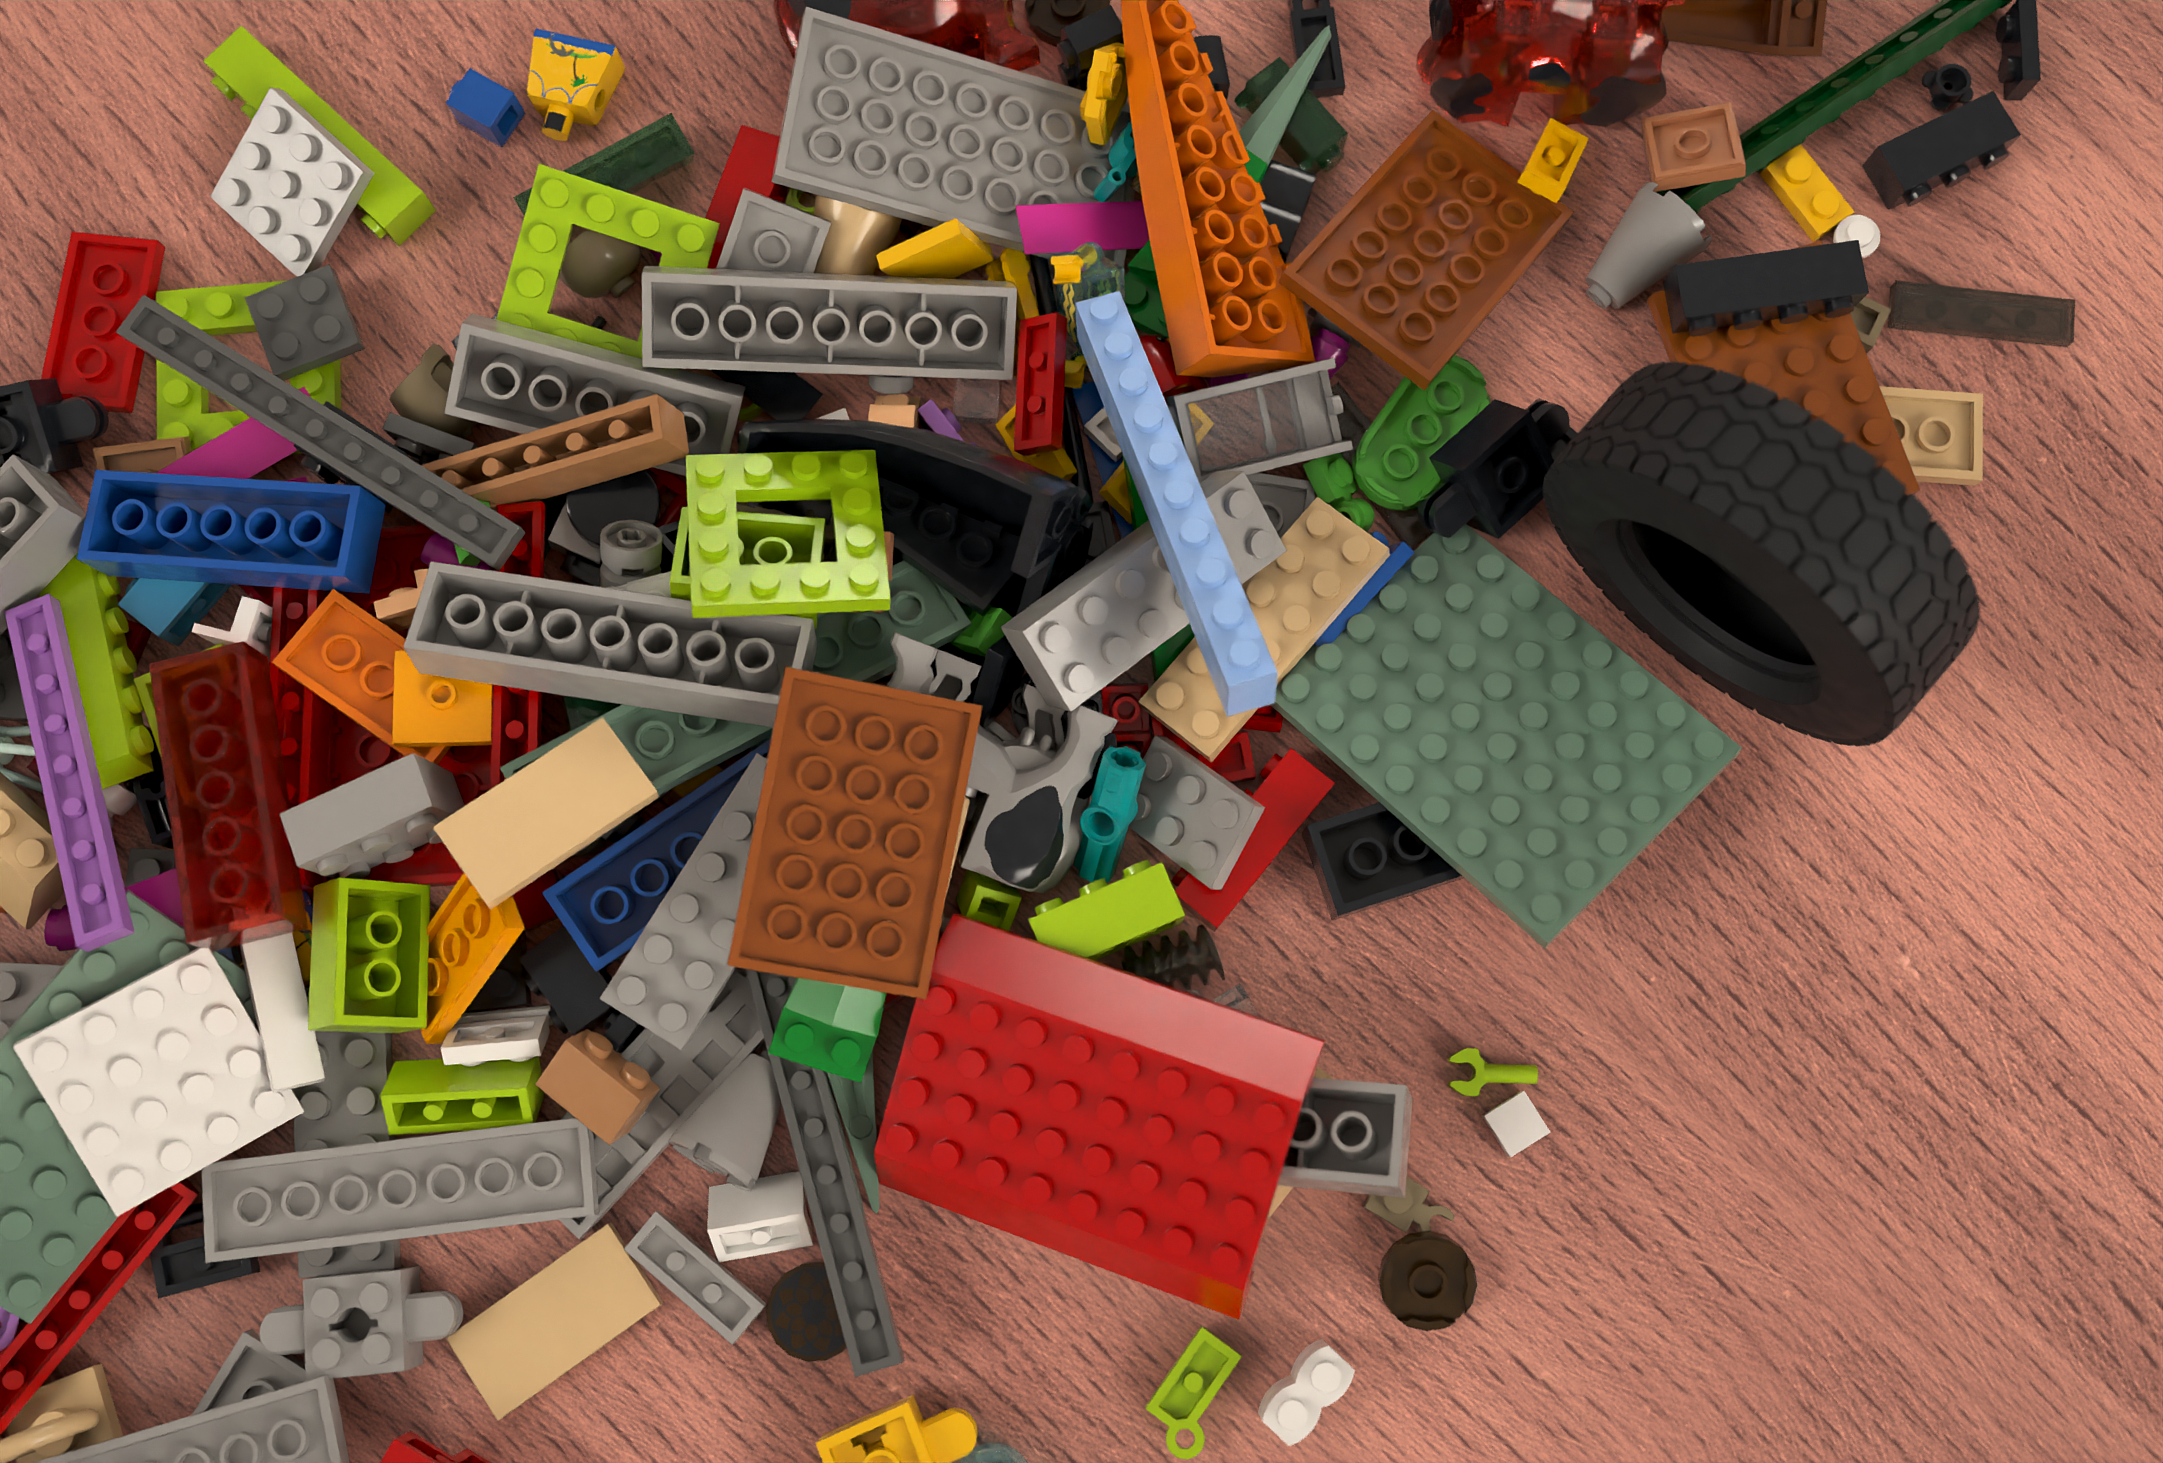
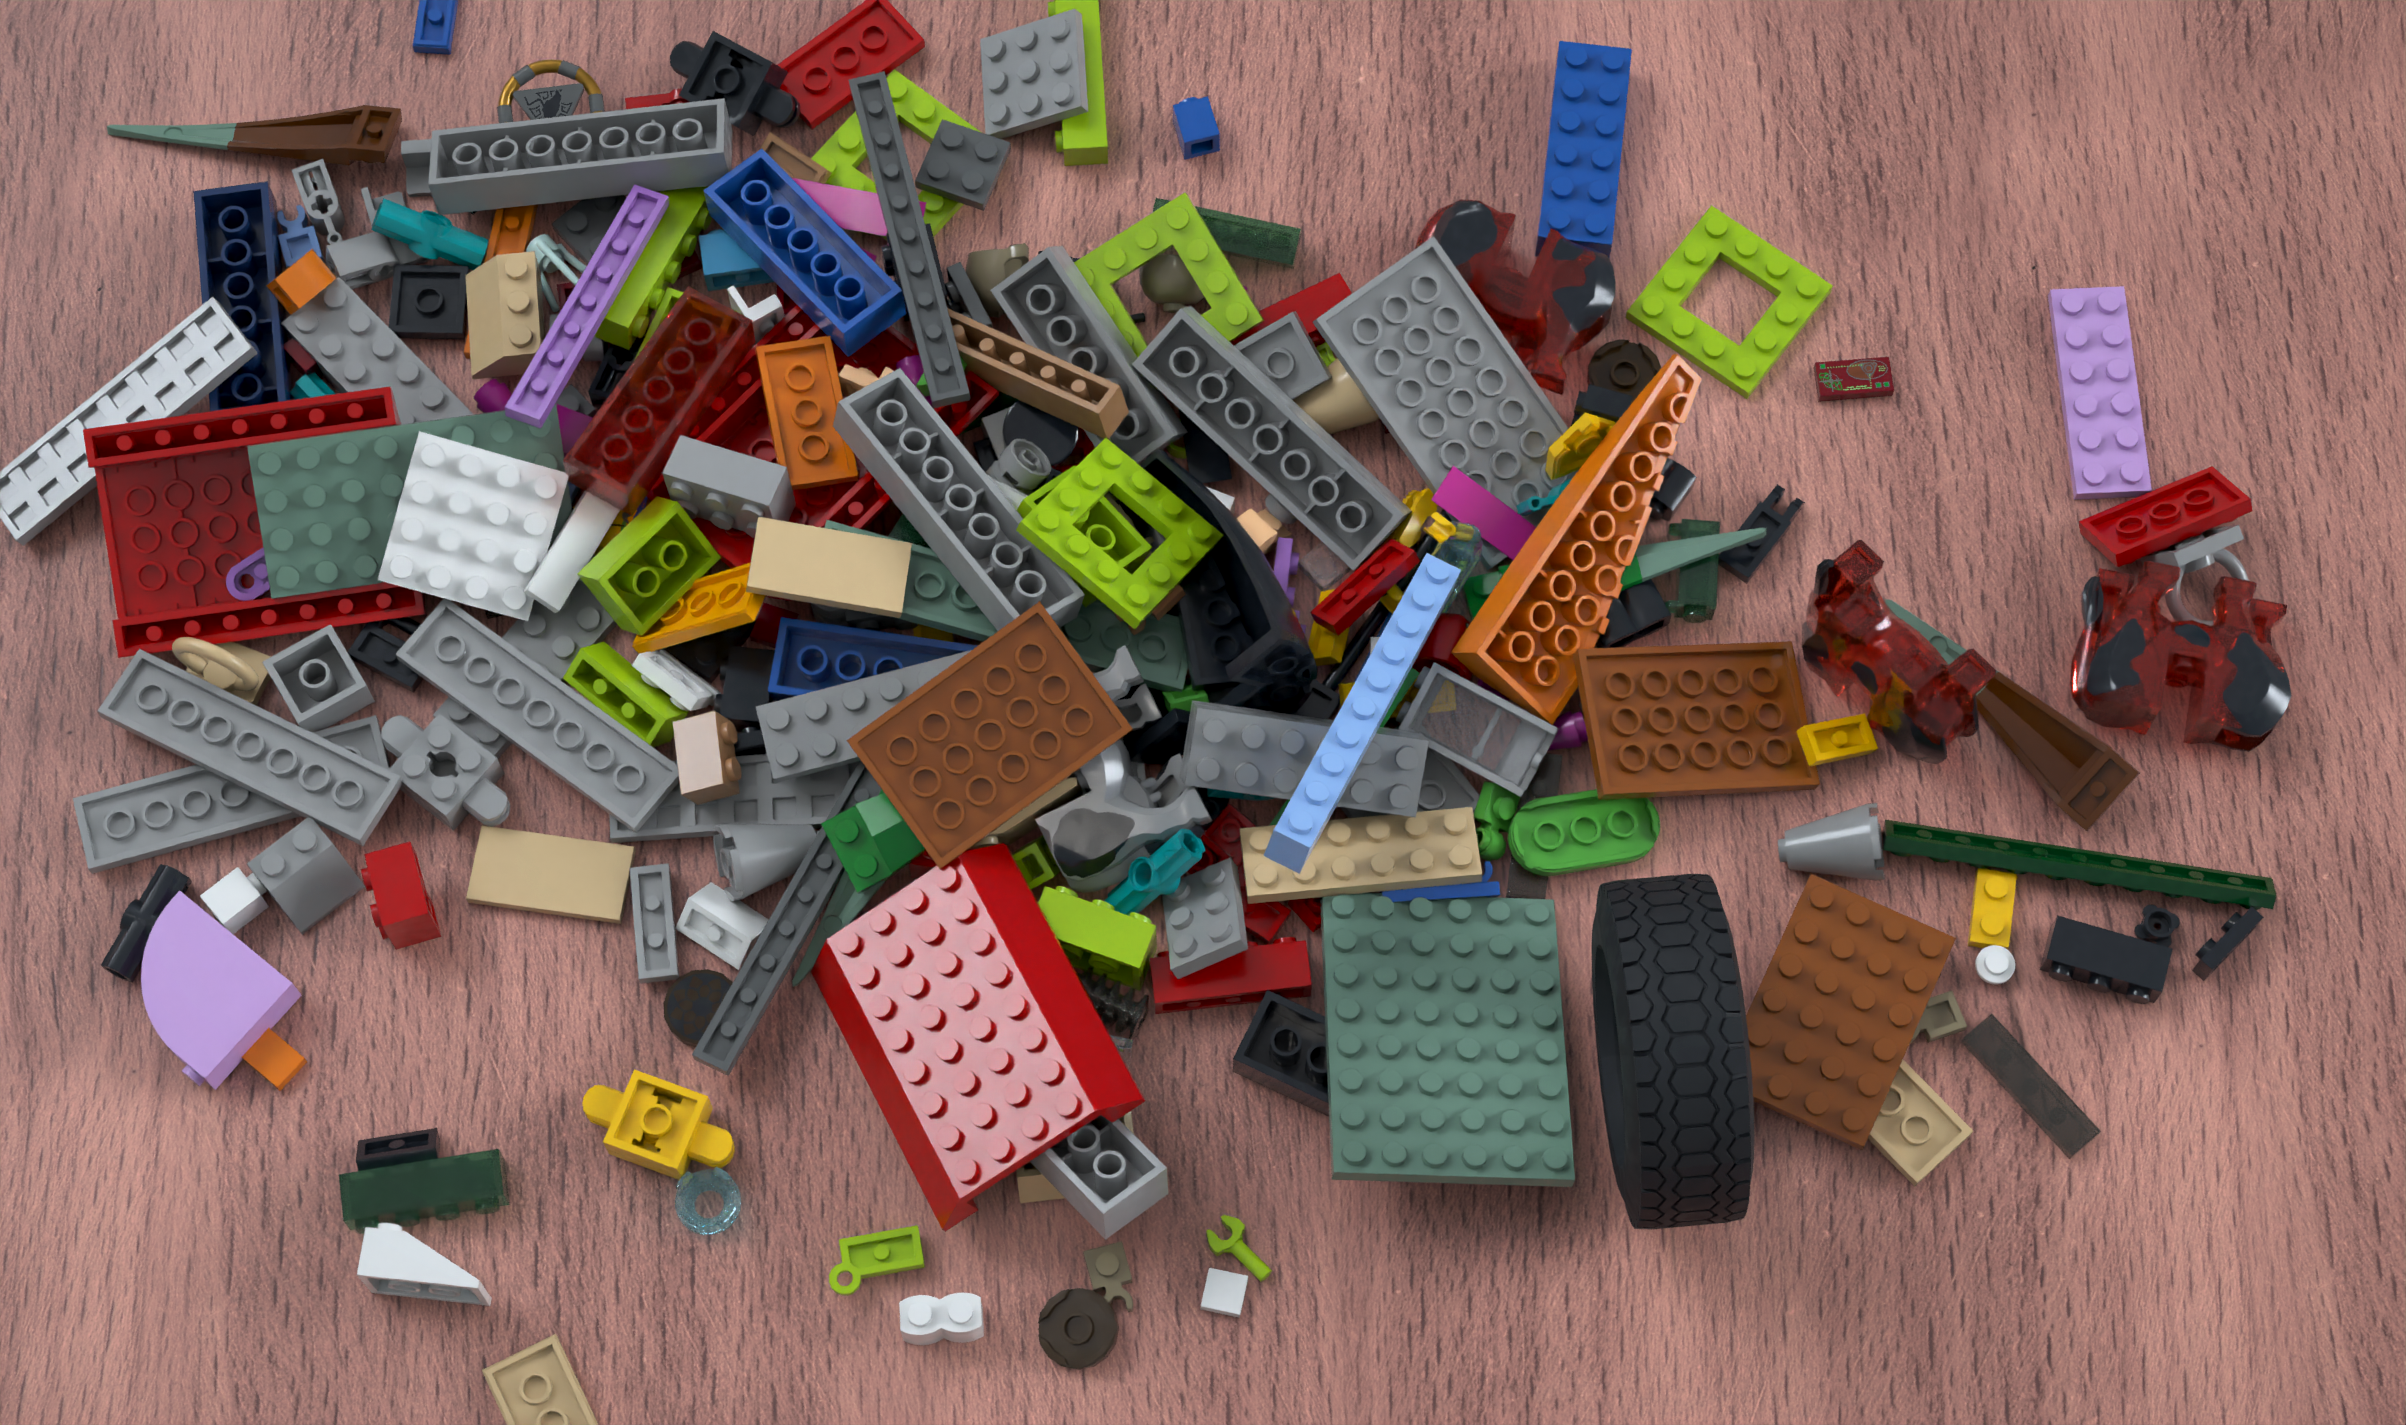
camera: 40 degrees right, 10 degrees down
(155, 1354) = (318, 680): none -> light grey brick
(438, 709) = (824, 458): light orange plate -> none
(571, 80) = (1263, 156): yellow torso -> none
(937, 253) = (1380, 454): yellow tile -> none
(1493, 468) = (1576, 884): black brick -> none
(1693, 147) = (1937, 811): nougat tile -> none
(1765, 288) = (1878, 928): black brick -> none

